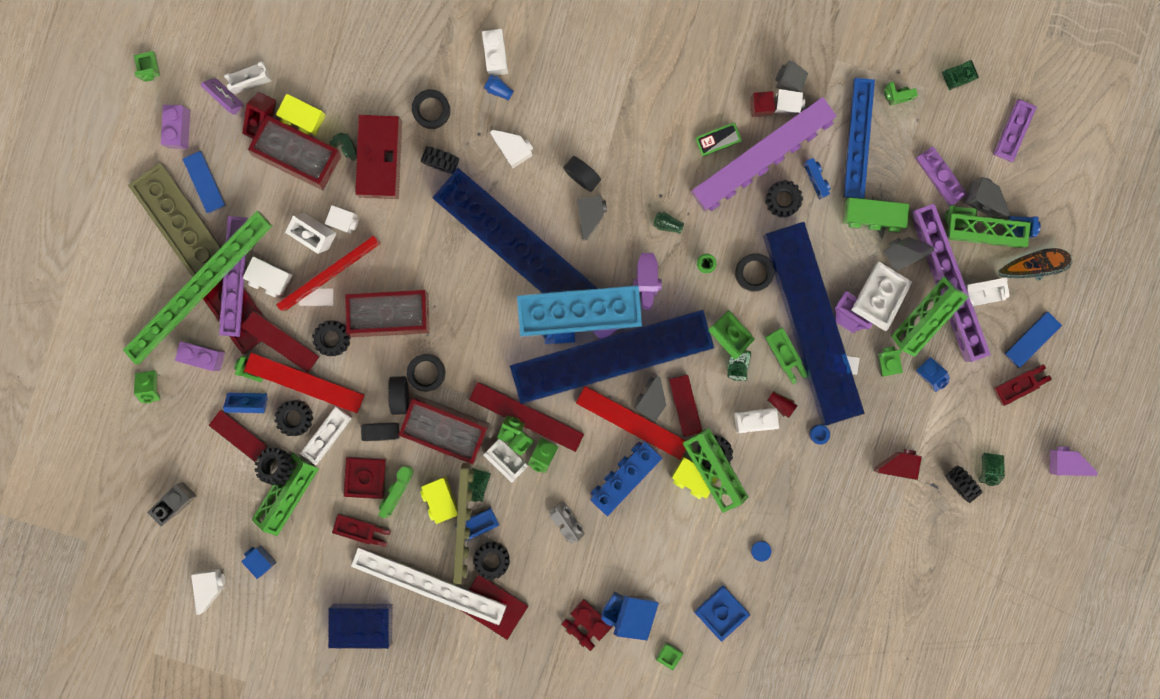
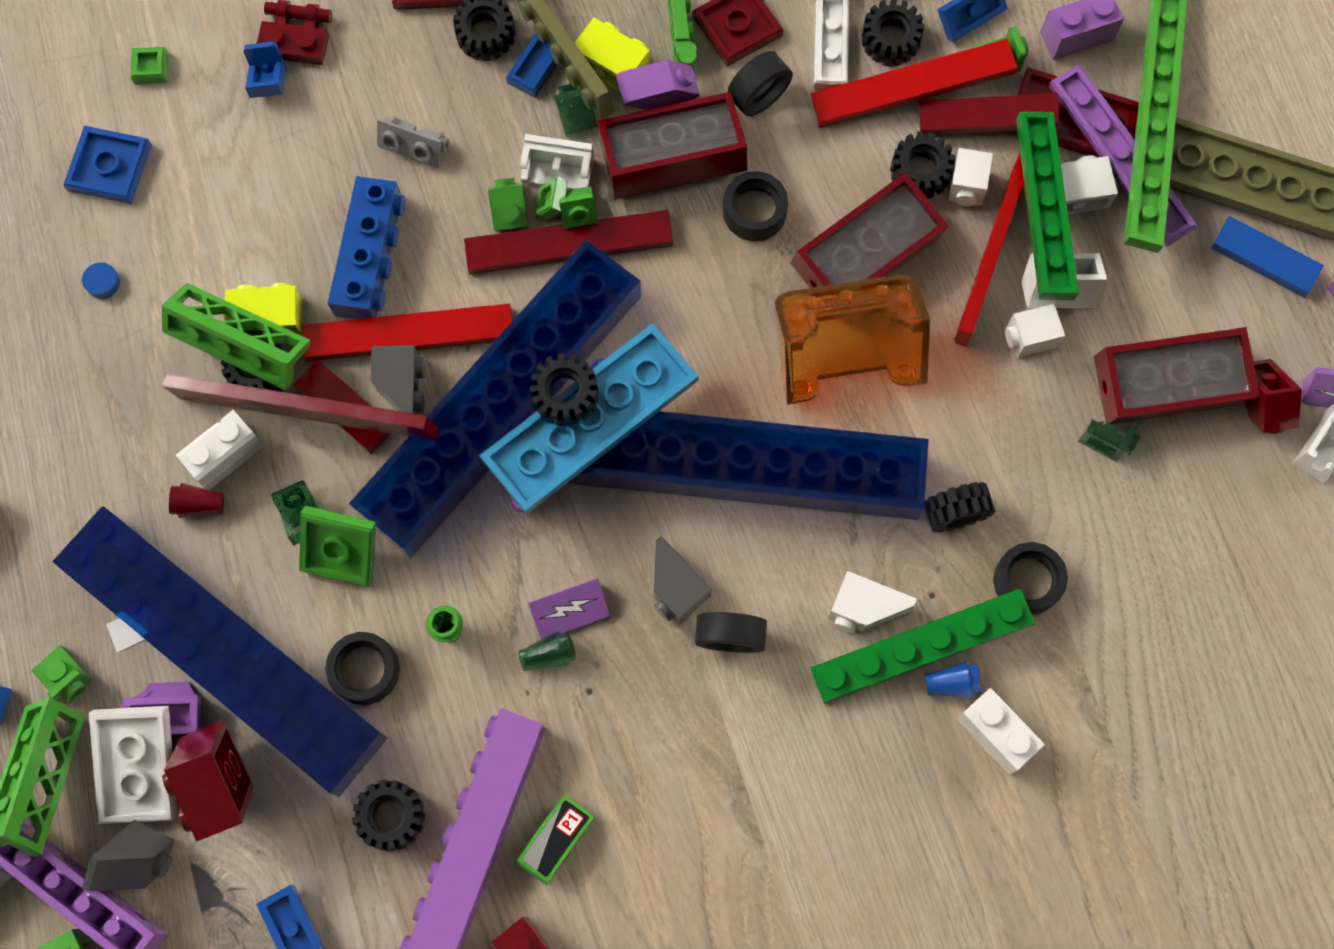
camera: 155 degrees right, 15 degrees down
(293, 270) = (1046, 206): none -> green plate
(300, 114) = (1211, 437): neon yellow brick -> none
(314, 314) = (970, 177): none -> white brick
(319, 297) = (977, 217): white sticker -> none
(378, 157) = (1051, 453): dark red brick -> none
(398, 395) = (771, 145): black tyre -> none
(427, 275) = (852, 332): none -> clear orange windscreen
(430, 463) = (657, 85): none -> medium lavender slope
(501, 111) = (922, 645): none -> green plate
(570, 328) = (558, 369): none -> black tyre
(636, 618) = (227, 76): blue tile -> none
(645, 236) = (569, 609): none -> medium lavender slope
(647, 279) = (521, 542): medium lavender hinge -> none
(704, 408) = (302, 407): none -> dark red tile
(785, 353) = (237, 578): bright green hinge -> none
(814, 172) = (340, 876): blue plate -> none
(819, 434) = (112, 495): blue tile -> none
(853, 259) = (208, 781): none -> dark red brick
(876, 214) = (220, 891): bright green brick -> none

